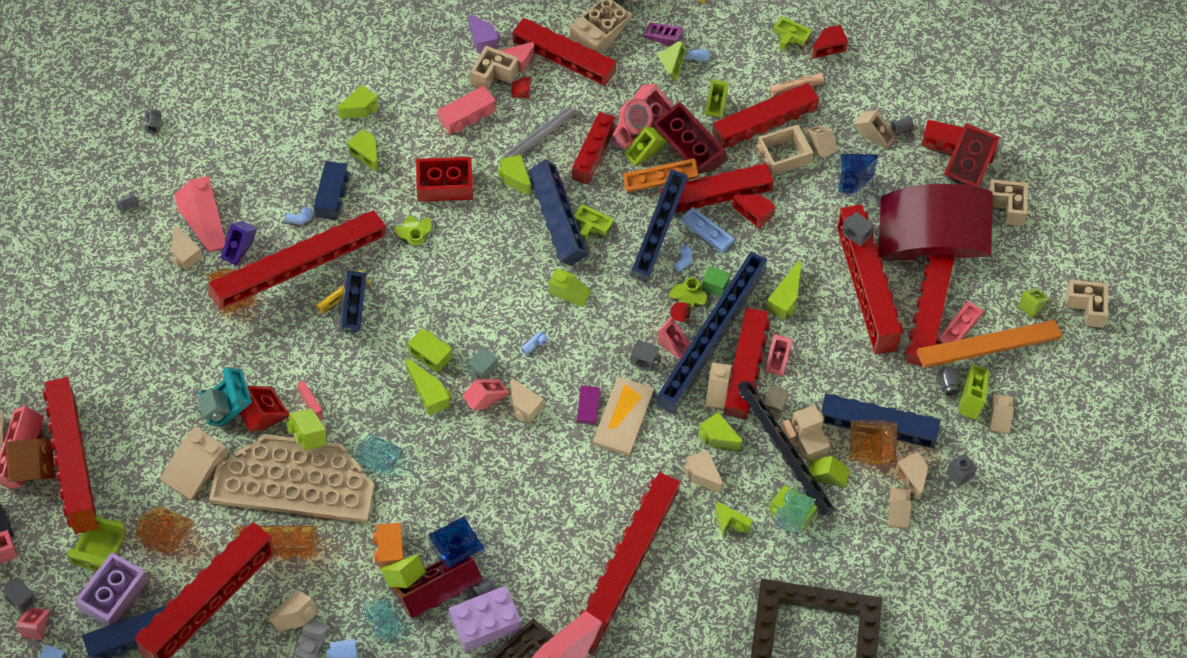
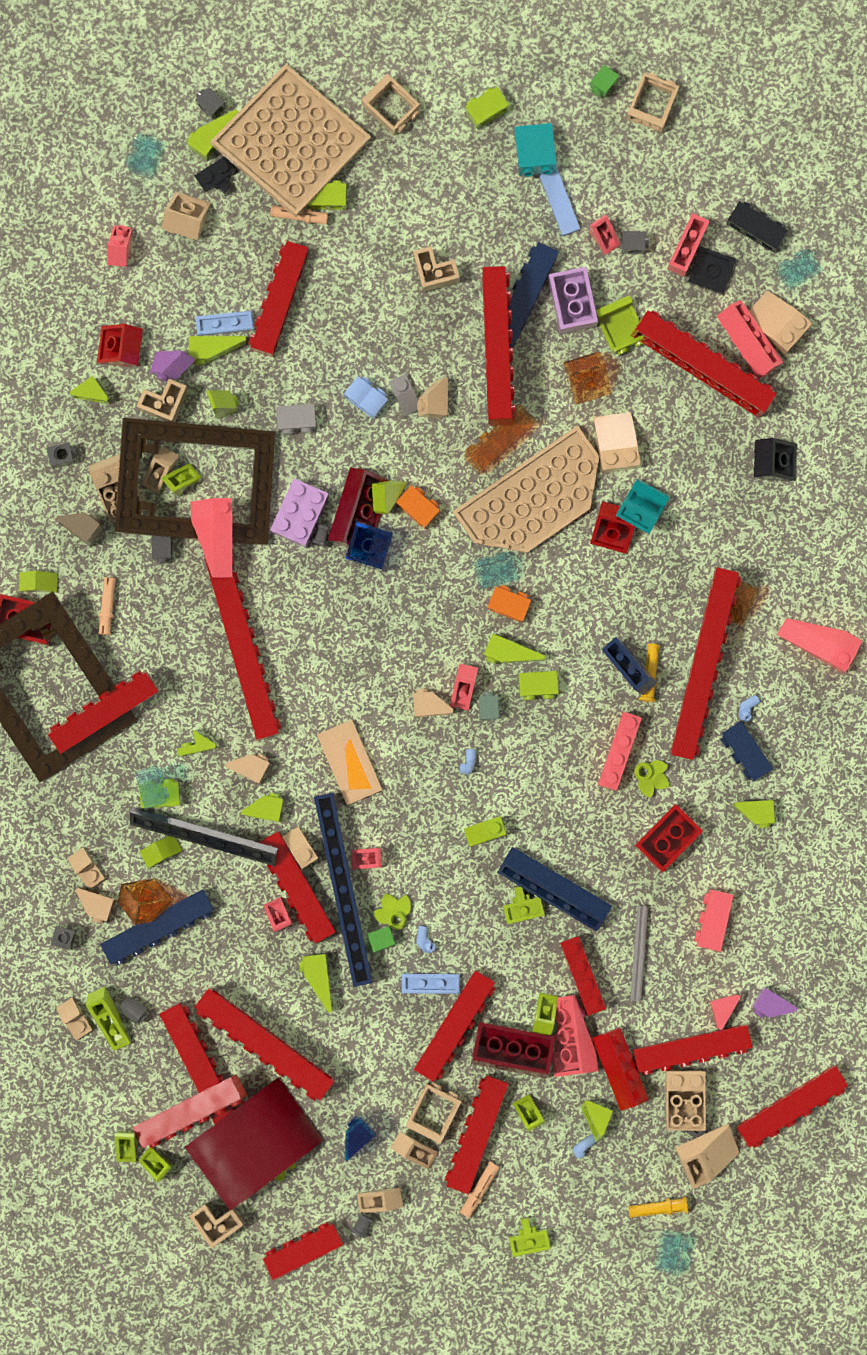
camera: 140 degrees right, 25 degrees up
(29, 460) = (726, 333): dark orange slope -> none
(98, 354) = (775, 459): none -> black slope
(184, 250) = (803, 599): tan slope -> none
(213, 404) = (643, 492): sand green brick -> none
(238, 242) = (769, 643): dark purple slope -> none
(307, 429) = (560, 537): lime brick -> none
(309, 399) = (584, 564): coral tile -> none
(358, 104) = (803, 848): lime slope -> none
(384, 617) = (372, 453): clear light blue bracket -> none
(393, 420) = (509, 604): none -> orange brick
(419, 260) = (619, 751): none -> coral brick
(493, 65) = (735, 977): tan brick -> none
(514, 173) = (622, 895): lime slope -> none
(521, 88) = (694, 983): red slope -> none
(588, 405) = (383, 748): magenta tile -> none
(625, 74) = (620, 1069): none -> red brick
(635, 116) = (570, 1028): tile -> none
(645, 355) = (376, 825): dark grey brick -> none
(658, 175) = (505, 995): orange plate -> none
(658, 225) = (462, 941): dark blue brick -> none
(661, 38) = (616, 1149): magenta slope -> none
(681, 311) = (380, 882): red brick -> none
(754, 208) = (407, 1035): red slope -> none
(776, 400) = (246, 872): dark tan brick -> none
(784, 596) = (103, 711): none -> red brick
(789, 431) = (215, 855): light nougat tile -> none
(810, 438) = (196, 866): tan brick -> none
(830, 42) = (489, 1260): red slope -> none
(857, 228) = (300, 1068): dark grey brick -> none
(961, 324) = (166, 1071): coral tile -> none
(966, 277) = (189, 1111): none -> brick
(971, 155) = (276, 1235): red brick -> none
(989, 343) = (127, 1069): orange tile -> none
(1022, 270) = (155, 1164): none -> lime slope
(1091, 298) = (80, 1185): tan brick -> none

